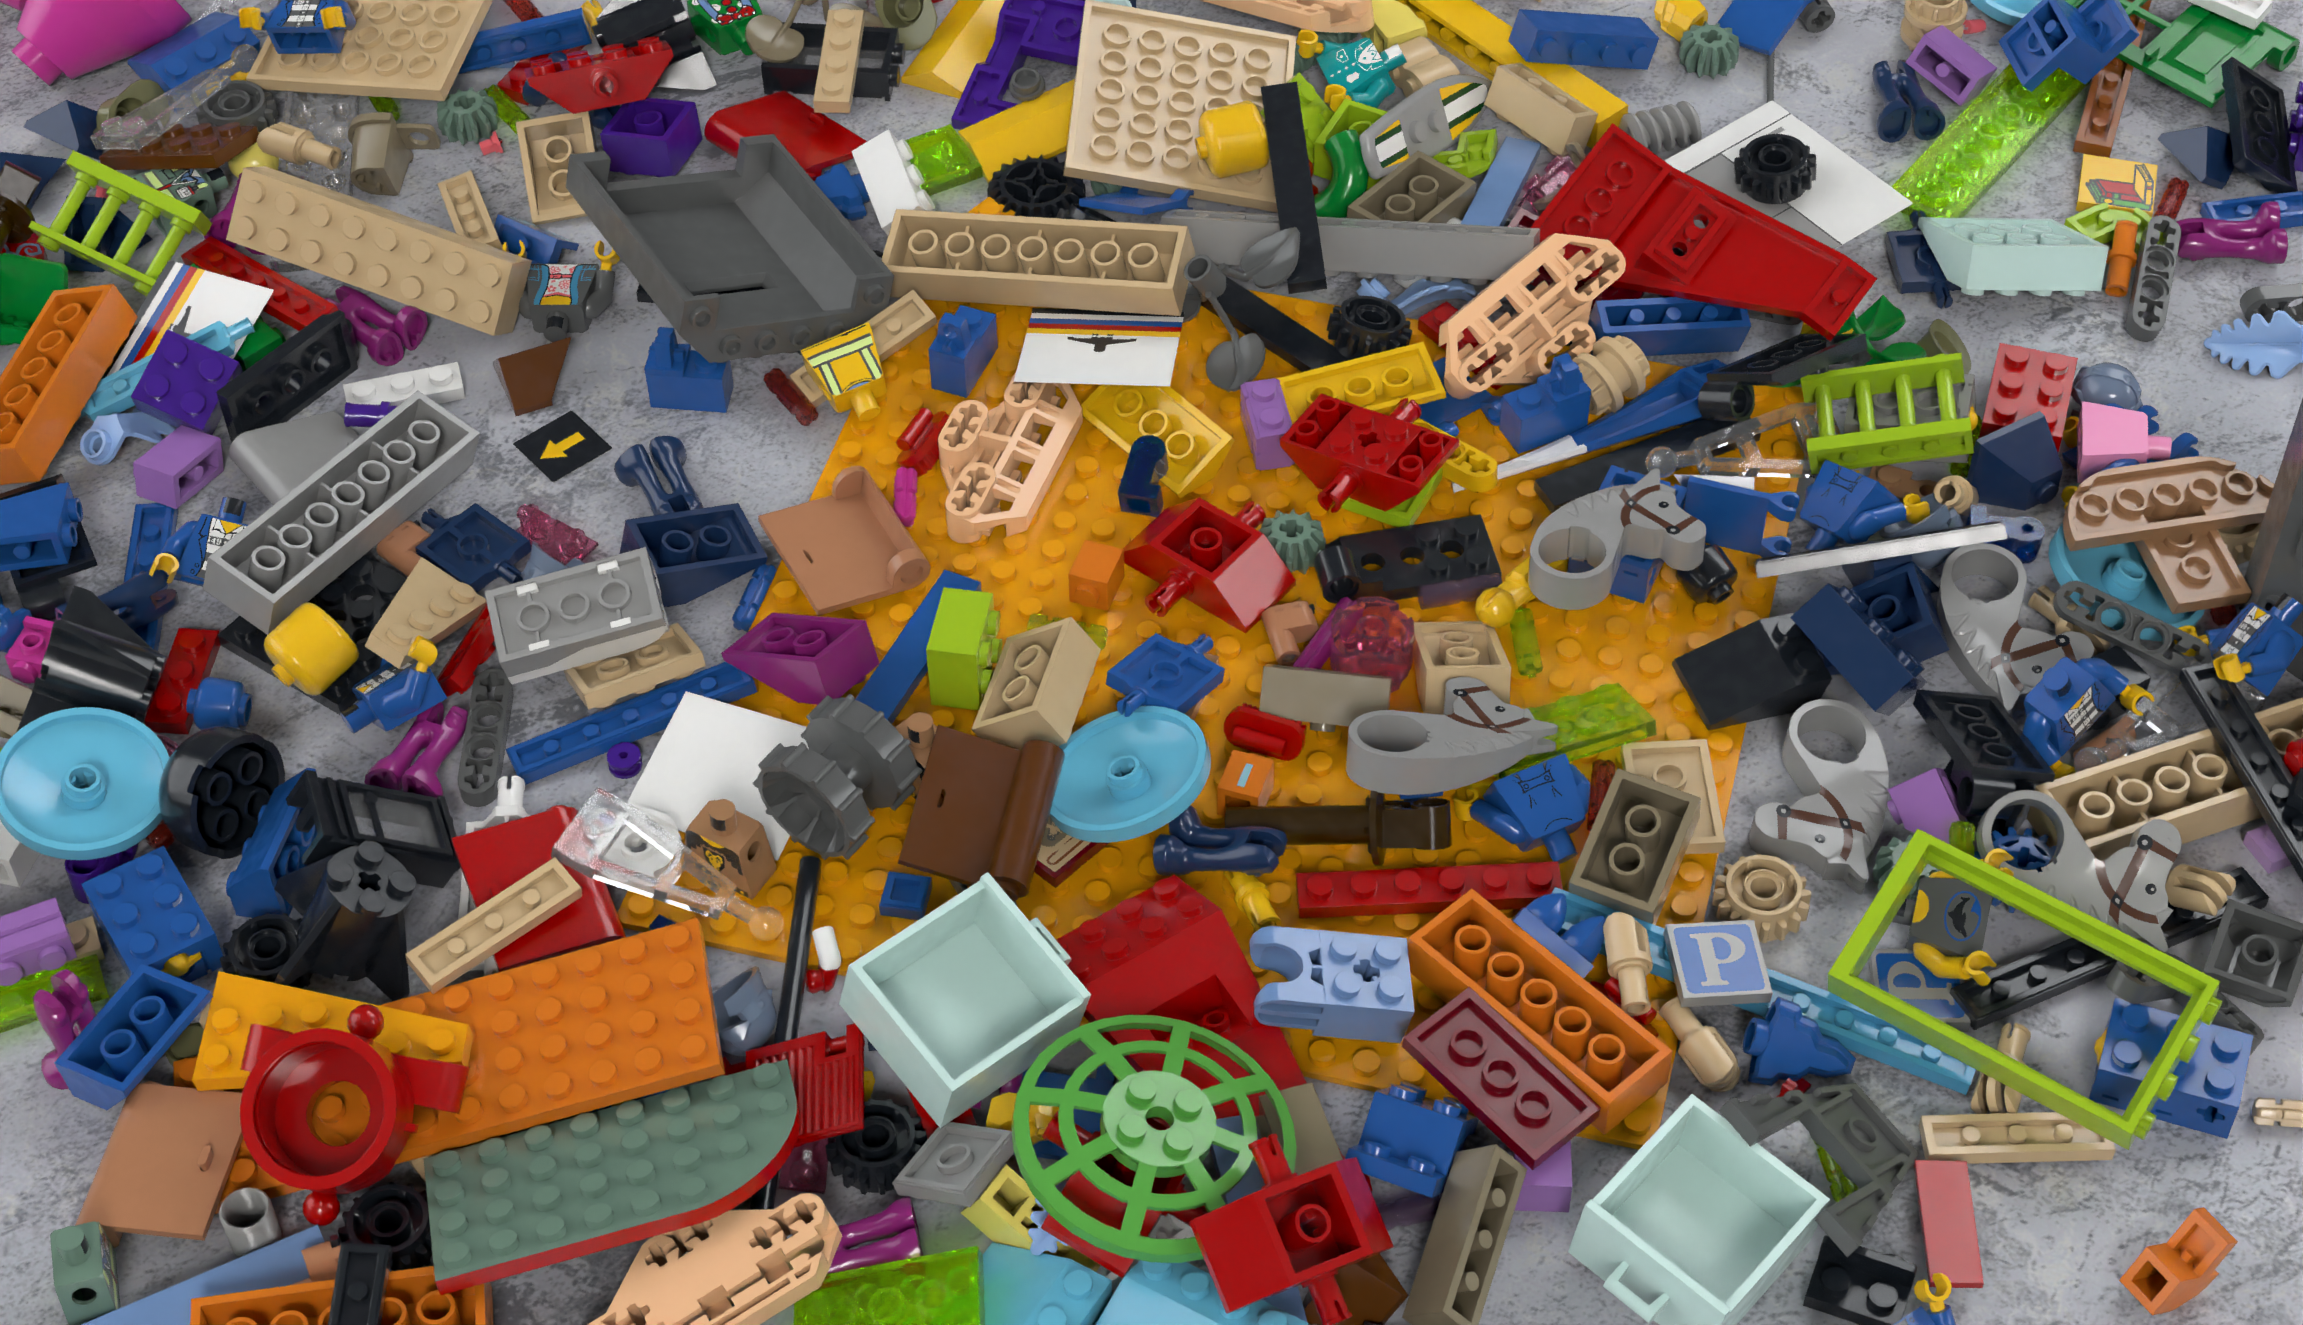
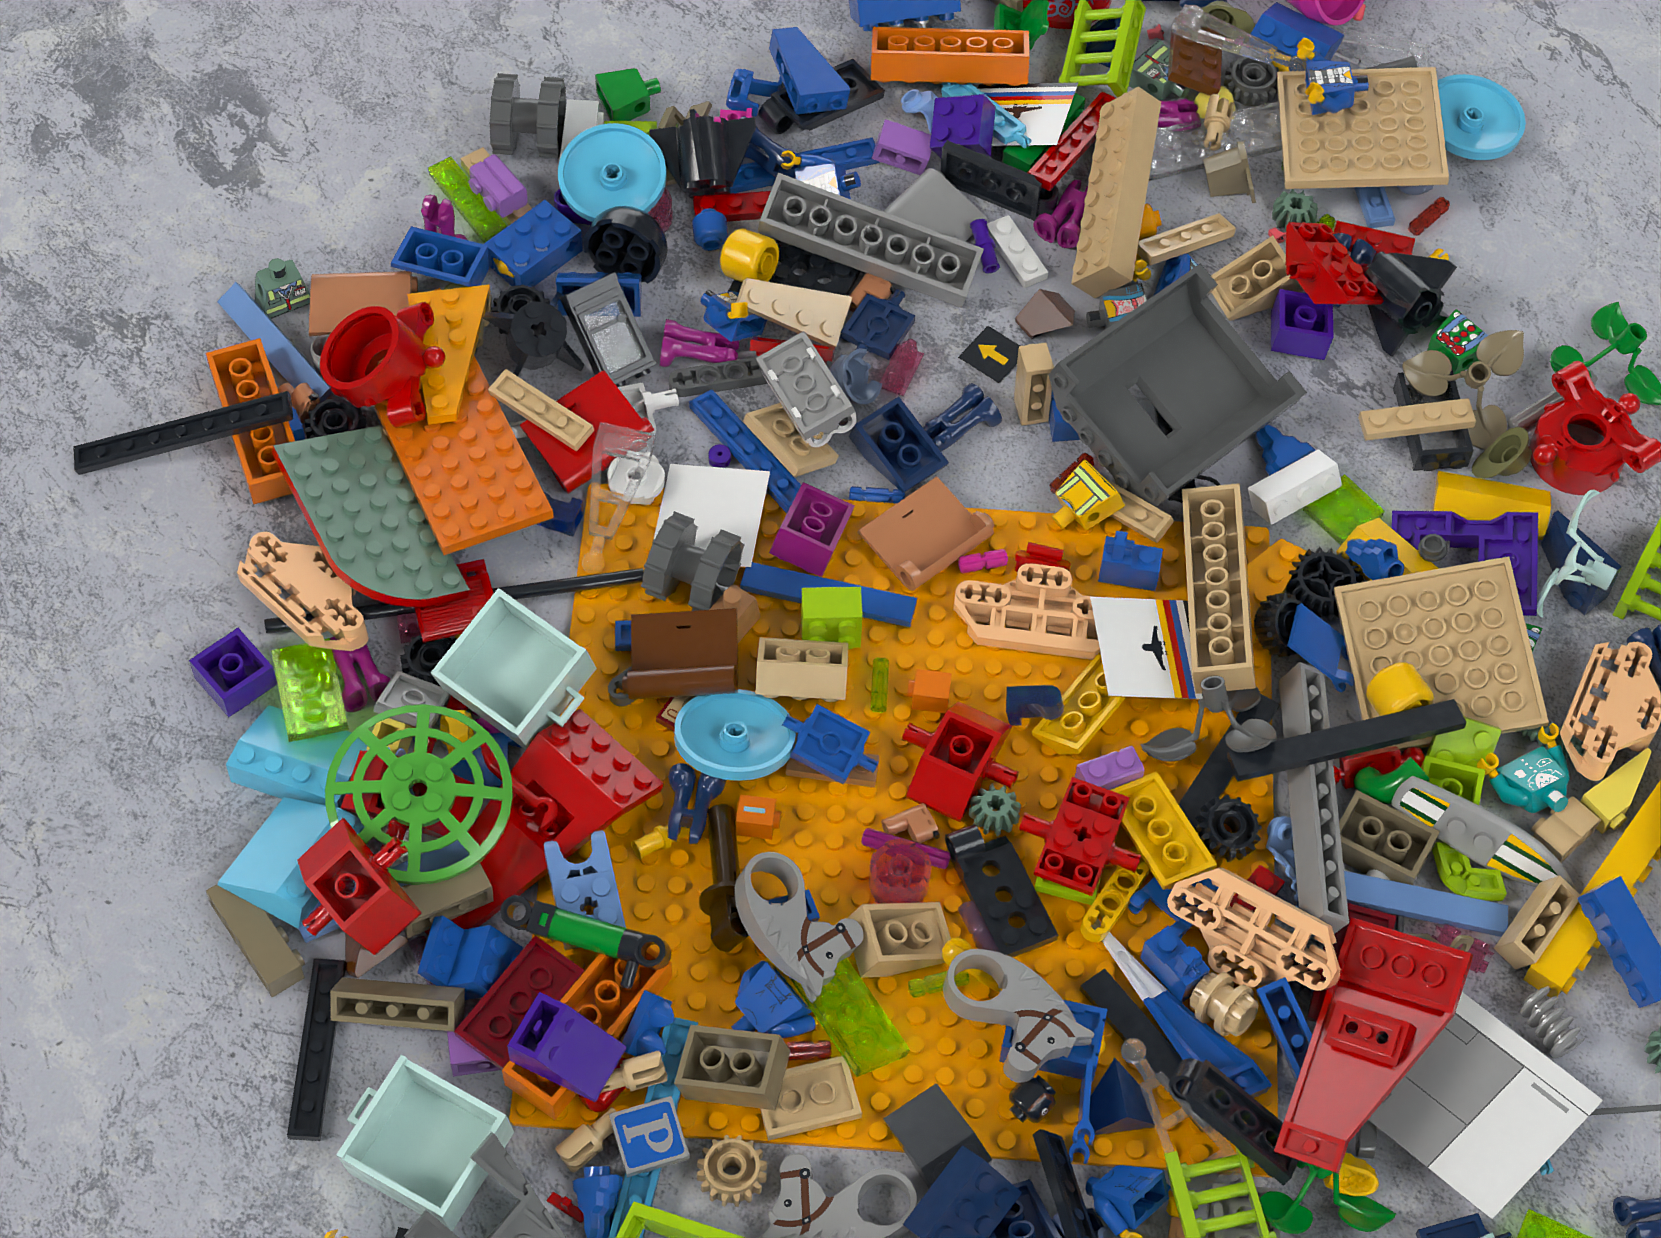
camera: 75 degrees right, 10 degrees up
(527, 40) = (1372, 219): blue tile -> none
(657, 381) = (1033, 384): none -> tan brick
(732, 845) = (639, 515): medium nougat torso -> none
(744, 1013) = (514, 561): sand blue helmet -> none
(806, 134) = (1332, 408): red door -> none
(829, 961) = (565, 605): arm -> none
(1033, 128) = (1376, 558): none -> blue rock
(1182, 1012) = (521, 790): none -> red piece
(1264, 732) = (808, 821): red piece -> none
(1322, 695) = (843, 852): dark tan brick -> none
(1421, 888) = (694, 946): red plate -> none
(1423, 963) = (589, 934): none -> piece
(1596, 1013) = (565, 1047): none -> dark purple slope
(1775, 168) = (1489, 1116): black gear -> none

